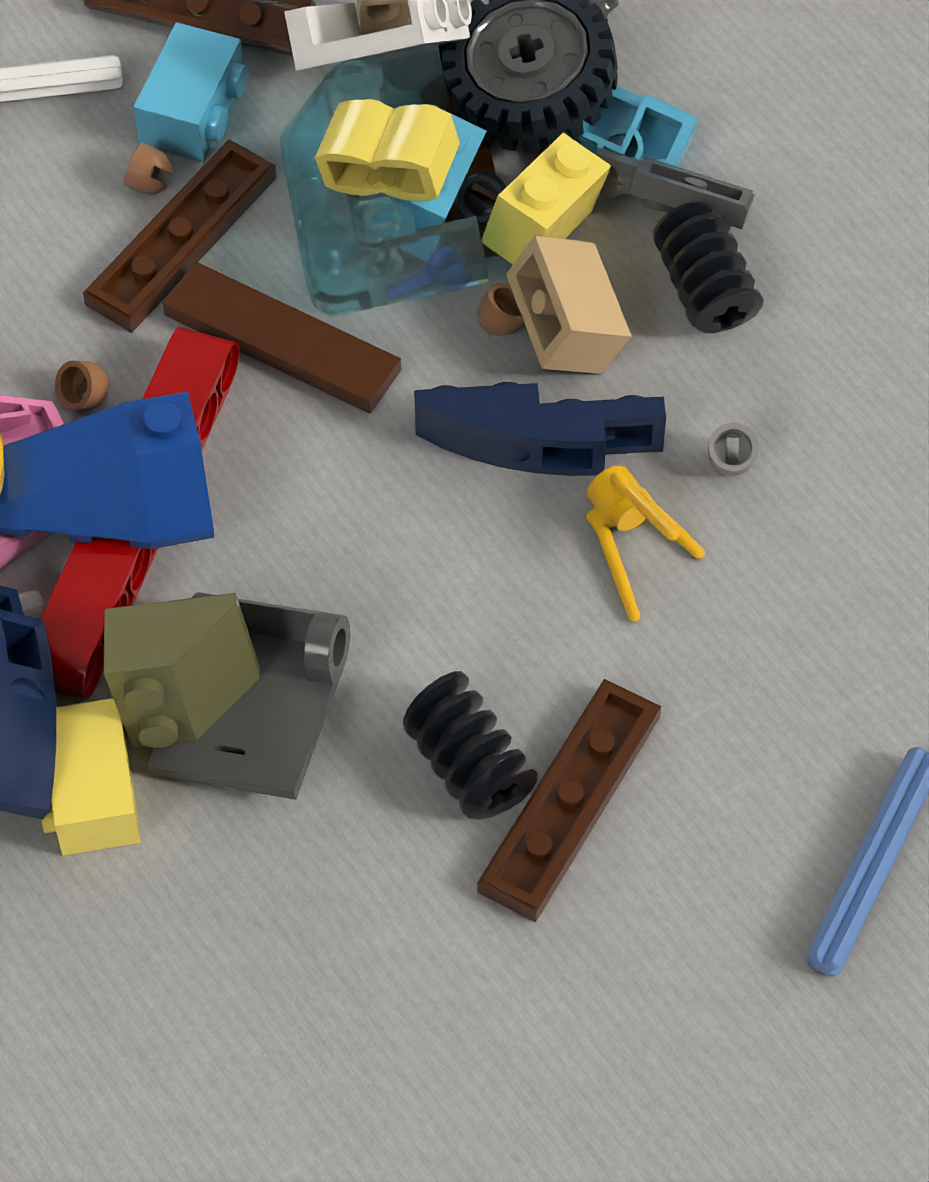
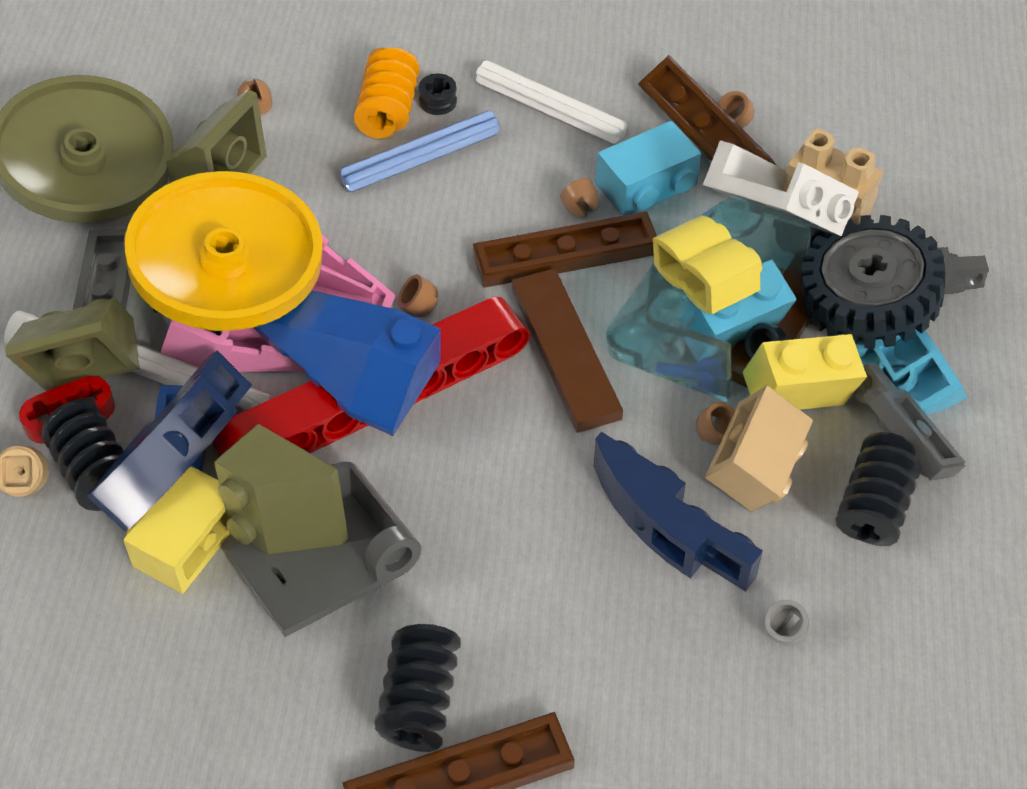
camera: 40 degrees right, 5 degrees down
(625, 505) = (677, 606): yellow plant -> none

